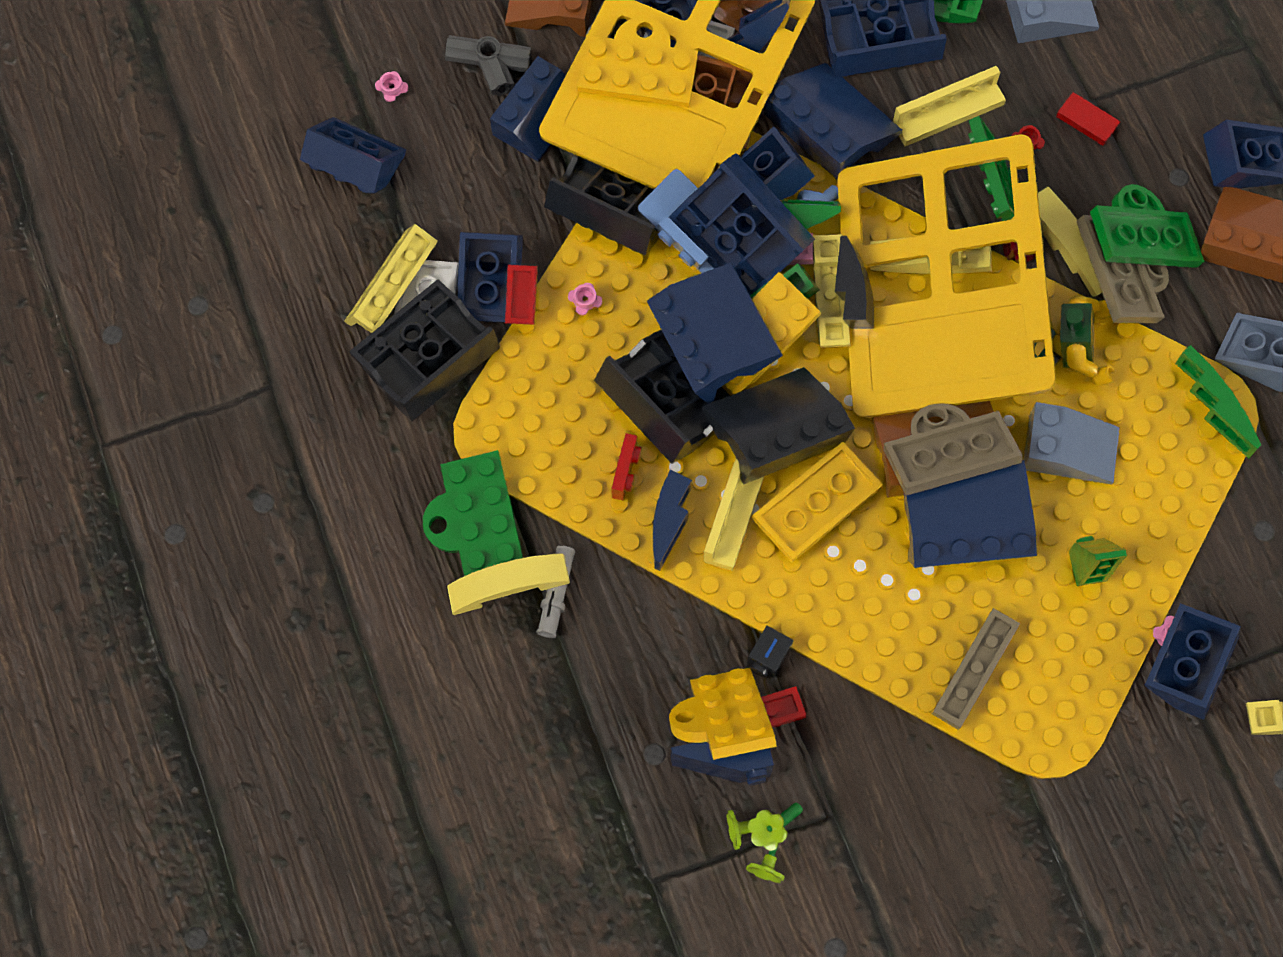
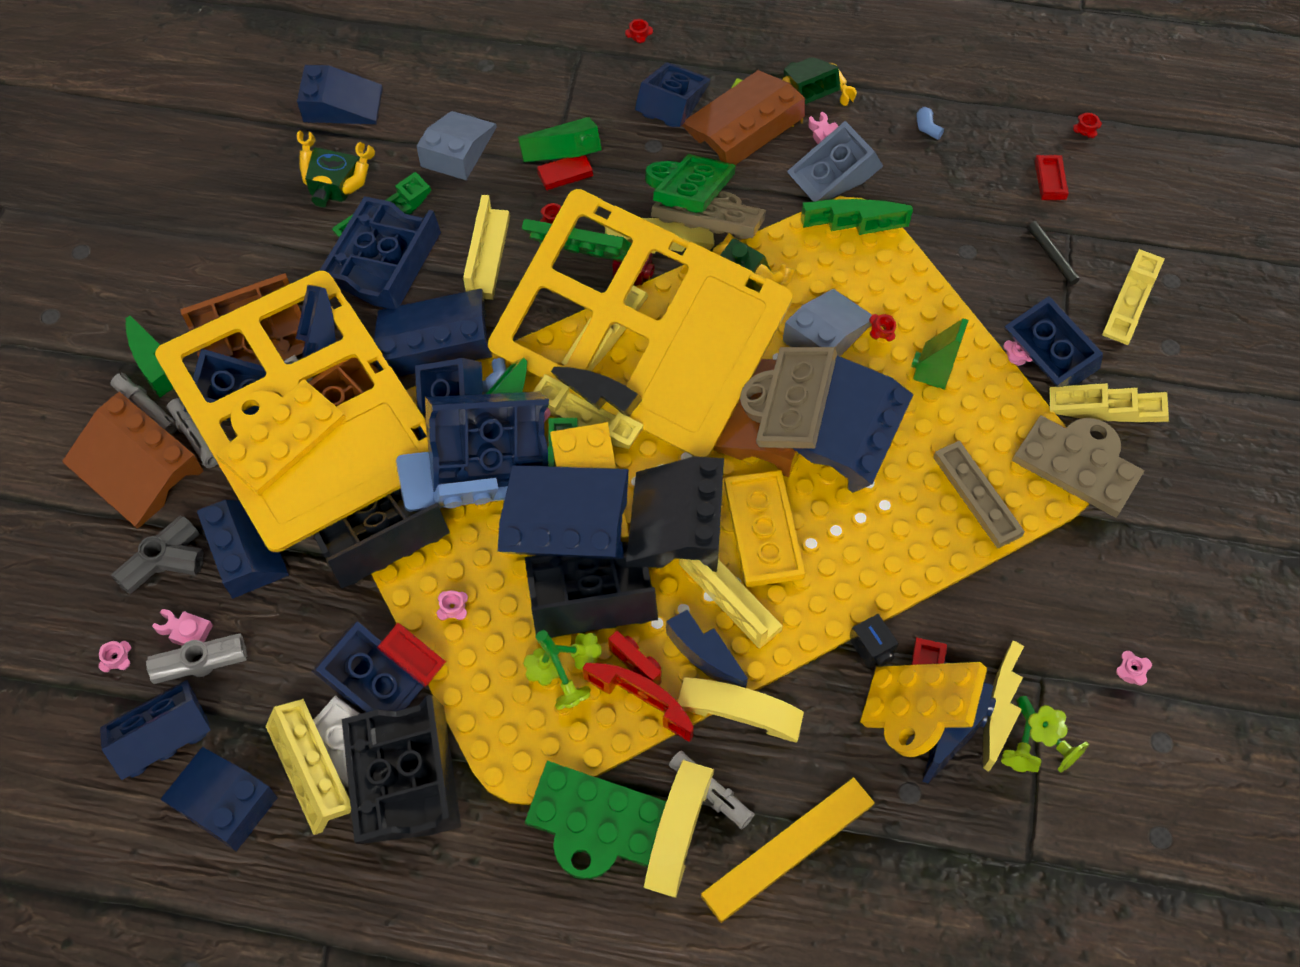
camera: 60 degrees left, 10 degrees down
(329, 237) = (220, 798): none -> dark blue slope
(435, 154) = (179, 662): none -> light grey piece
(444, 119) = (185, 628): none -> bright pink plate
(545, 680) = (787, 850): none -> yellow tile
(575, 403) = (545, 665): none -> lime plant
(596, 523) = (608, 676): none -> red slope
(639, 576) = (741, 705): none -> light yellow slope
(766, 793) = (1004, 713): none -> light yellow slope
(896, 884) = (1133, 676): none -> bright pink plate
(1077, 747) = (1080, 462): none -> dark tan plate
(1112, 494) = (885, 321): none -> red plate
(1115, 95) = (561, 141): none -> green slope
(1167, 747) = (1109, 404): none -> light yellow slope

